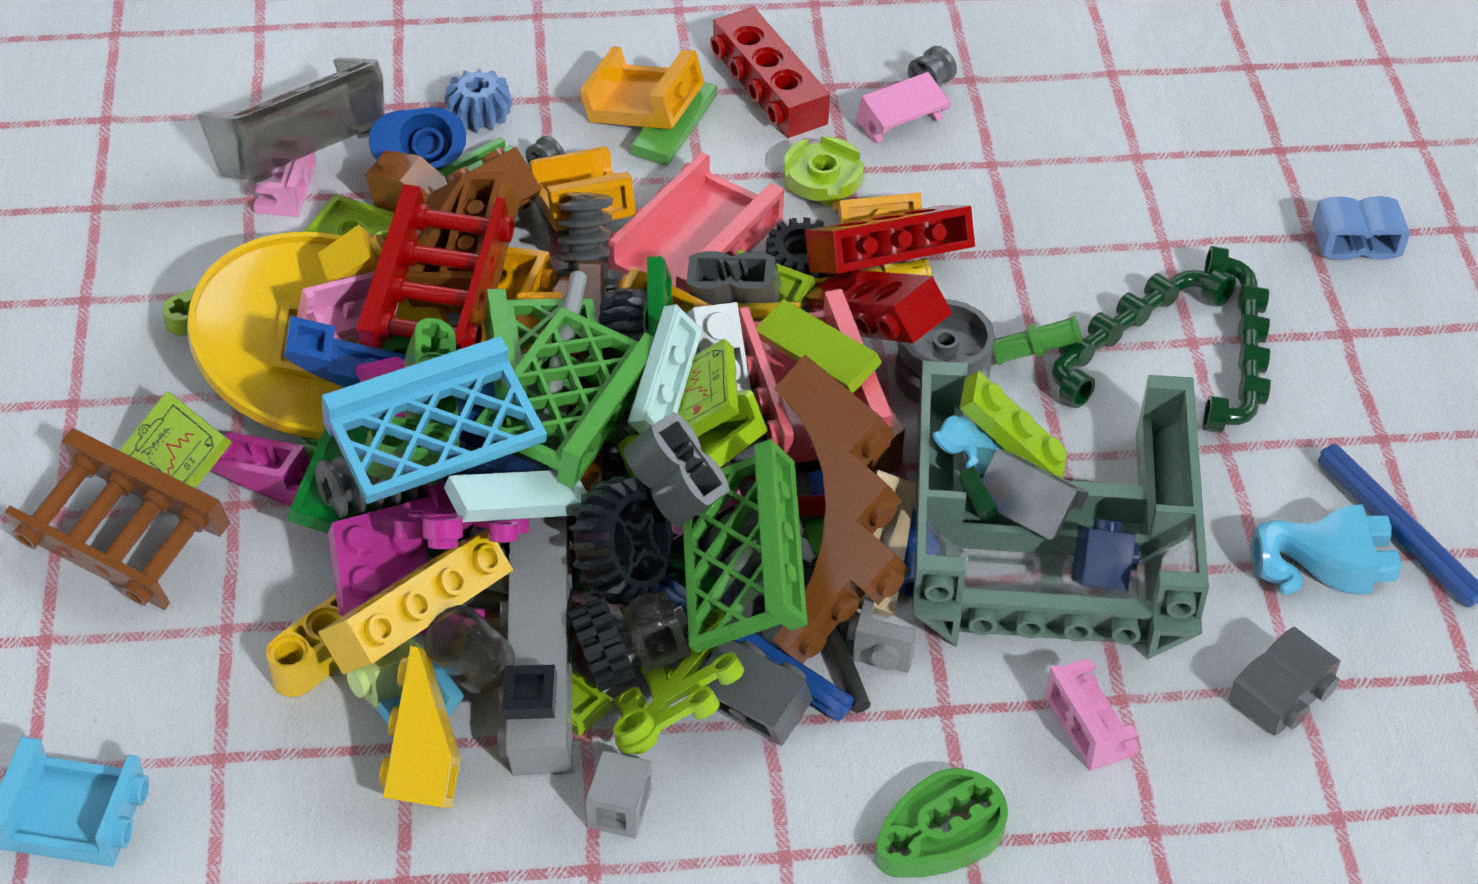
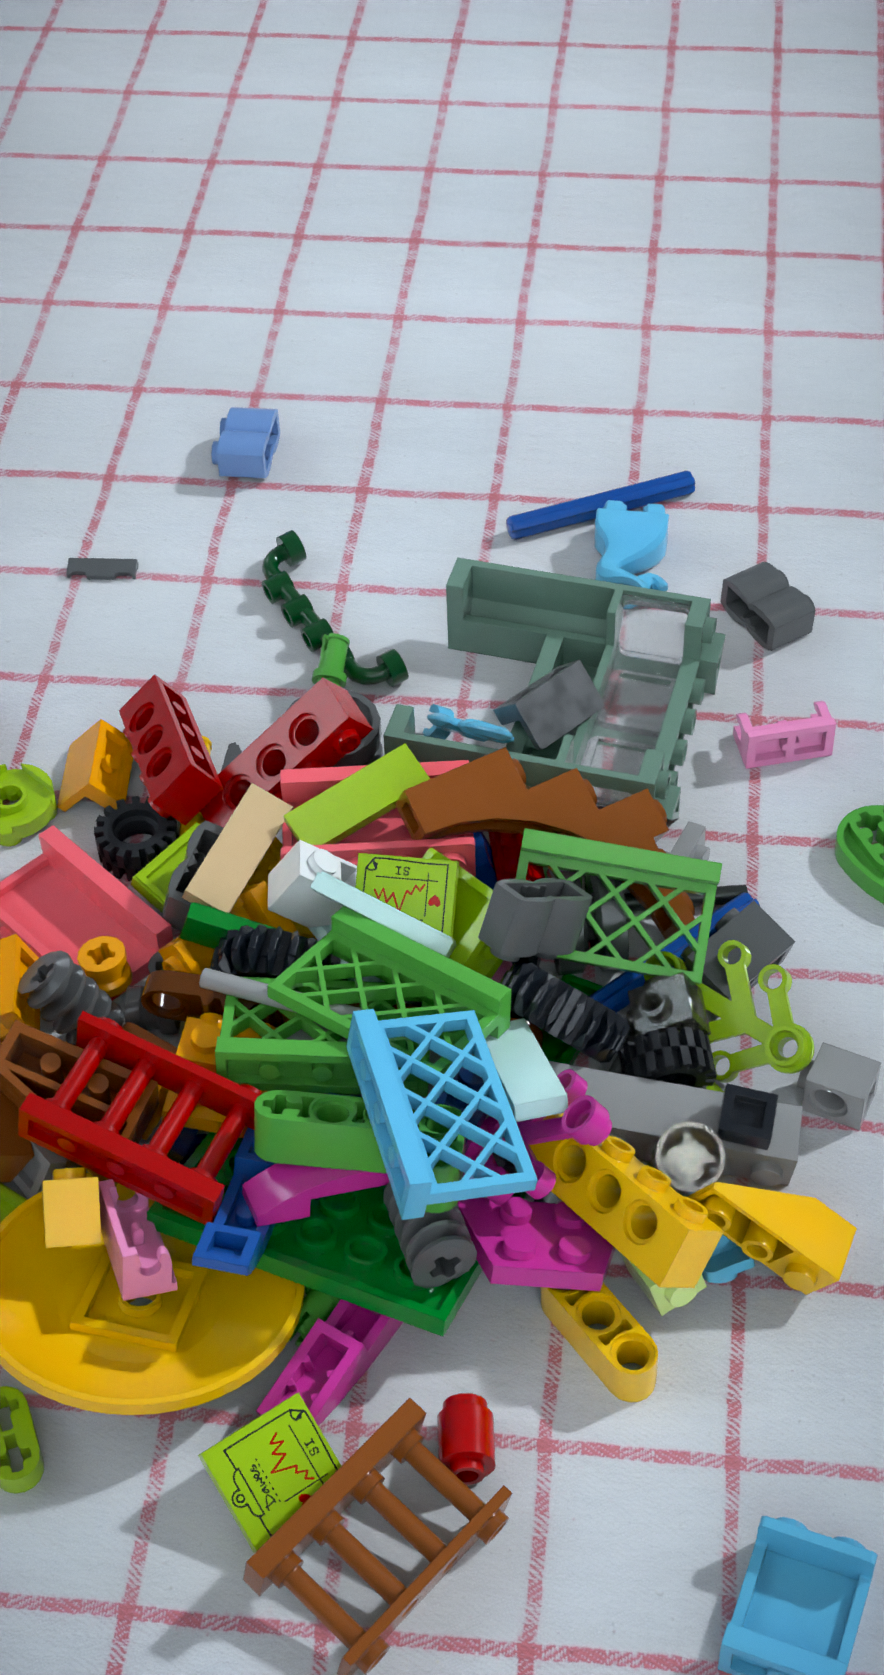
camera: 75 degrees left, 0 degrees up
(213, 565) = (466, 1437): none -> red brick
(636, 248) = (106, 962): none -> light orange wheel
(745, 283) = (238, 850): none -> tan tile
(978, 494) = (550, 731): dark green tile -> none
(1010, 425) = (459, 701): lime plate -> none
(1105, 555) = (631, 675): dark blue brick -> none
(1145, 169) = (102, 568): none -> dark grey piece
(1252, 358) = (350, 538): dark green bar -> none

